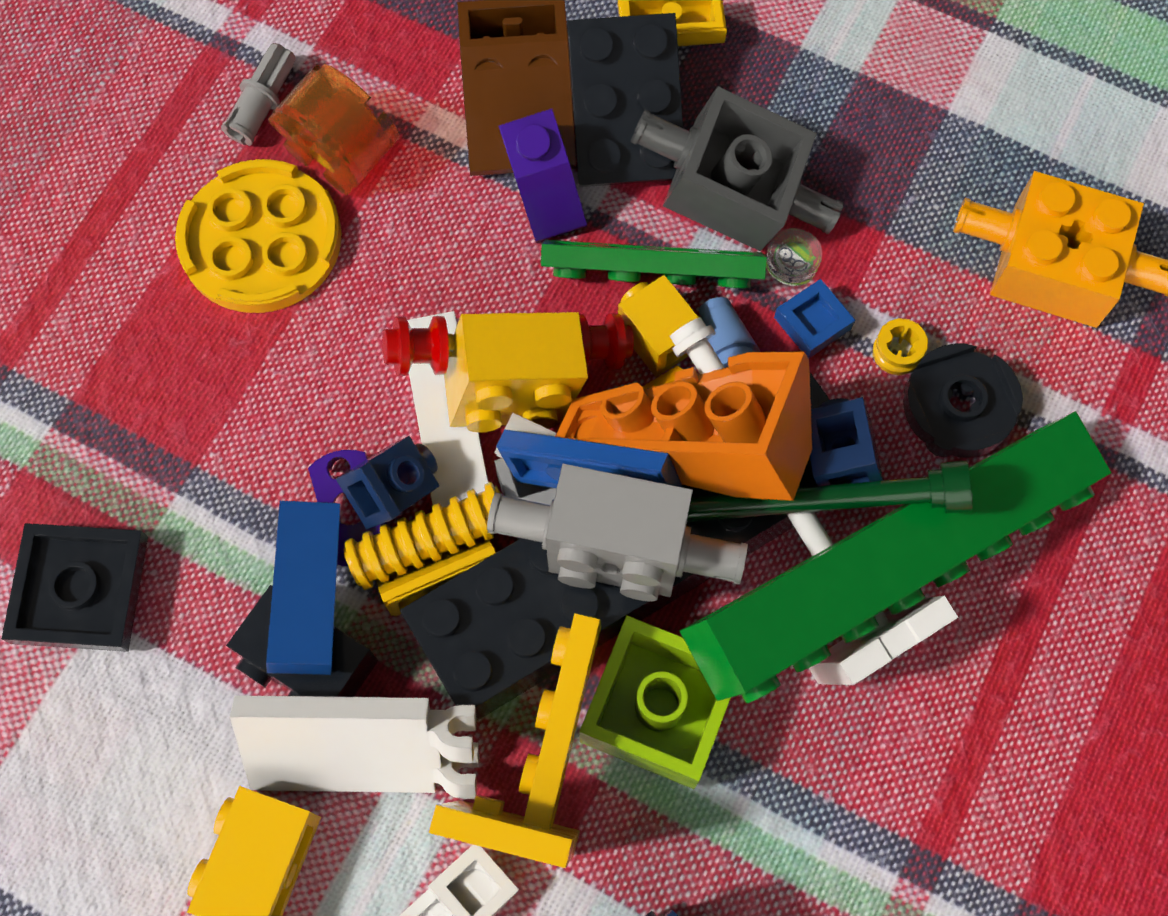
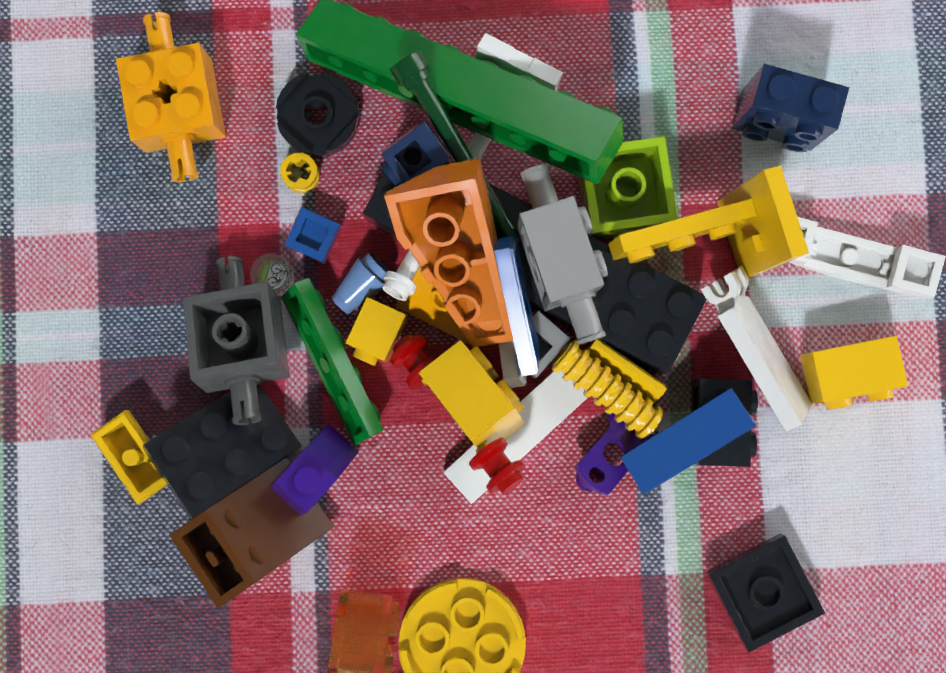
camera: 115 degrees left, 15 degrees up
(390, 481) = (588, 434): dark blue brick -> none

